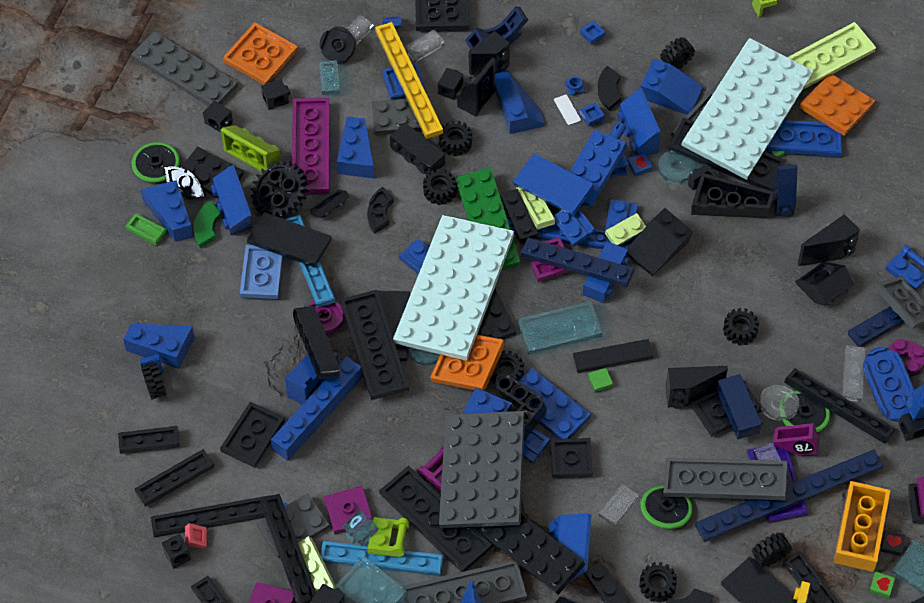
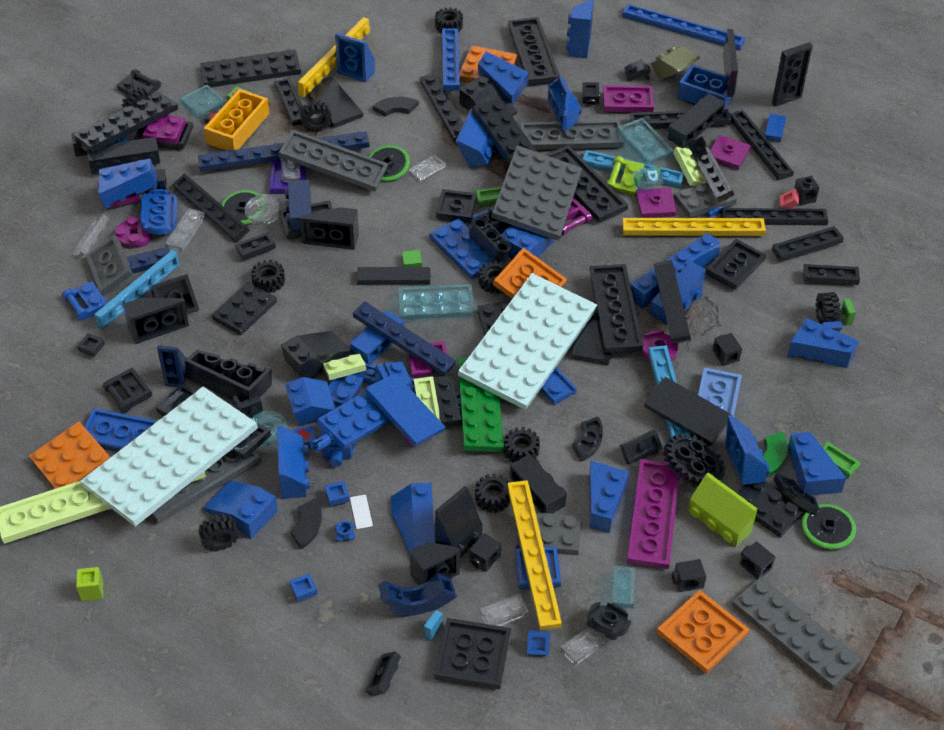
camera: 170 degrees left, 10 degrees down
(132, 390) = (847, 312): none -> bright green tile
(256, 322) = (727, 349): none -> black brick
(302, 477) = (694, 226): none -> yellow plate
(478, 19) = (433, 625): none -> dark azure tile
(537, 484) = (487, 196): none -> bright green tile
(646, 191) = (309, 399): none -> blue slope
(658, 593) = (418, 114): black tyre -> none
(750, 288) = (244, 308): none -> black plate
(769, 362) = (255, 246): none -> black plate
(797, 439) = (260, 181): magenta slope -> none
(817, 181) = (133, 387): none -> black plate
(863, 286) = (137, 289): none -> dark azure tile
(878, 216) = (91, 345): none -> black plate

